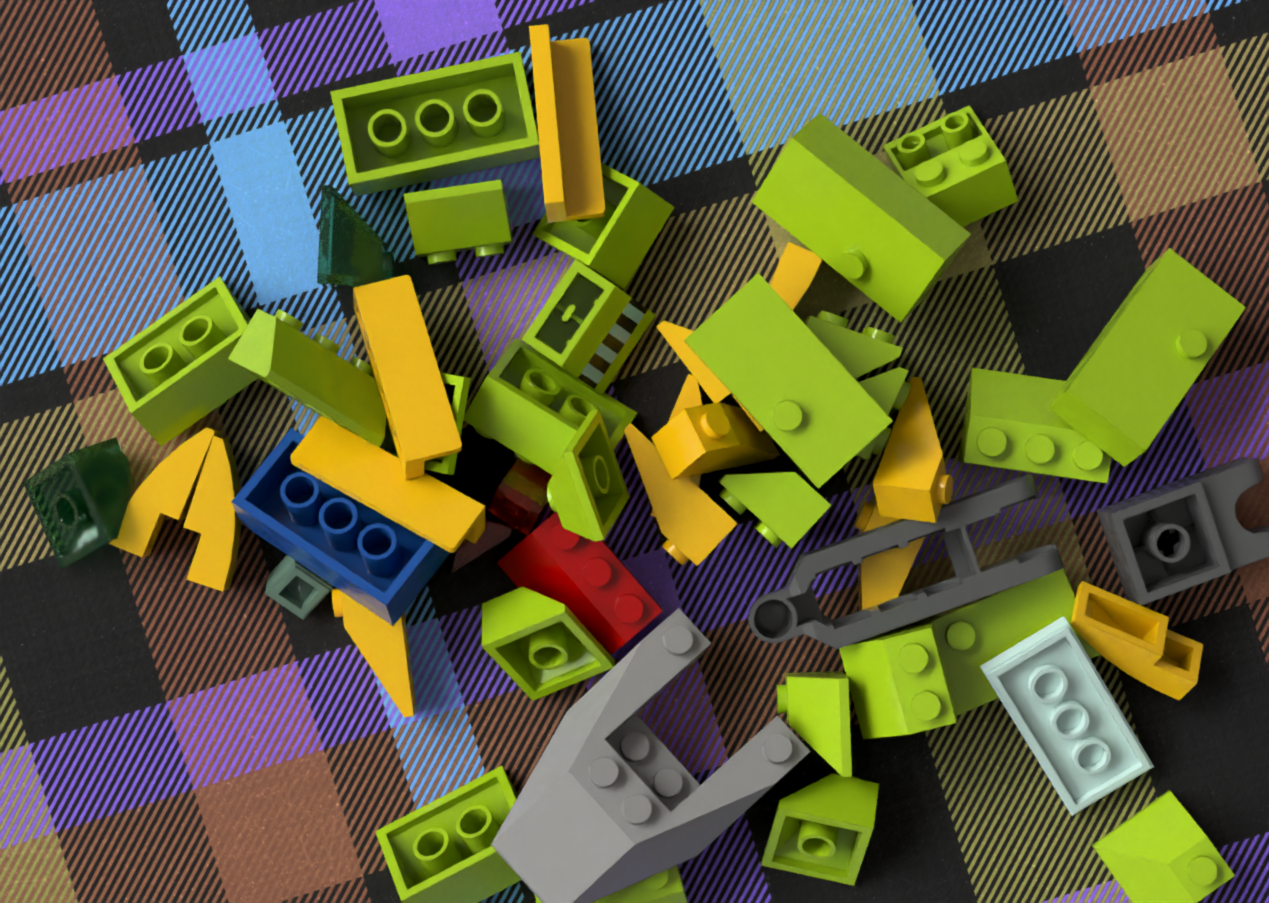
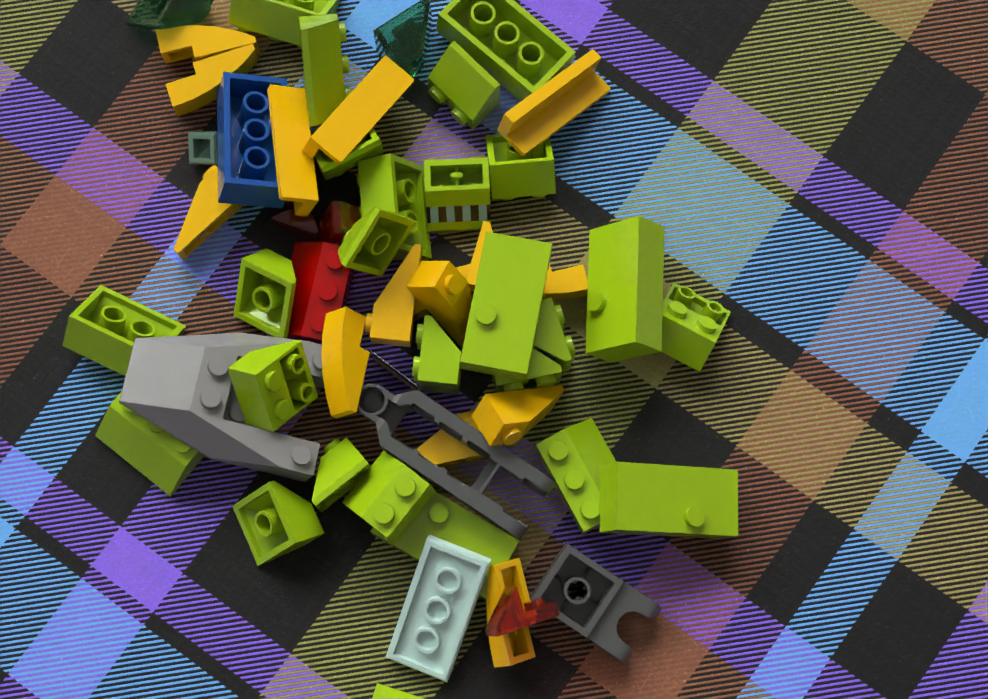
camera: 55 degrees right, 10 degrees down
(670, 721) = (273, 384): none -> lime slope
(701, 617) = (343, 360): none -> yellow slope
(752, 562) = (393, 371): none -> sticker
(1152, 645) = (511, 616): none -> clear red slope

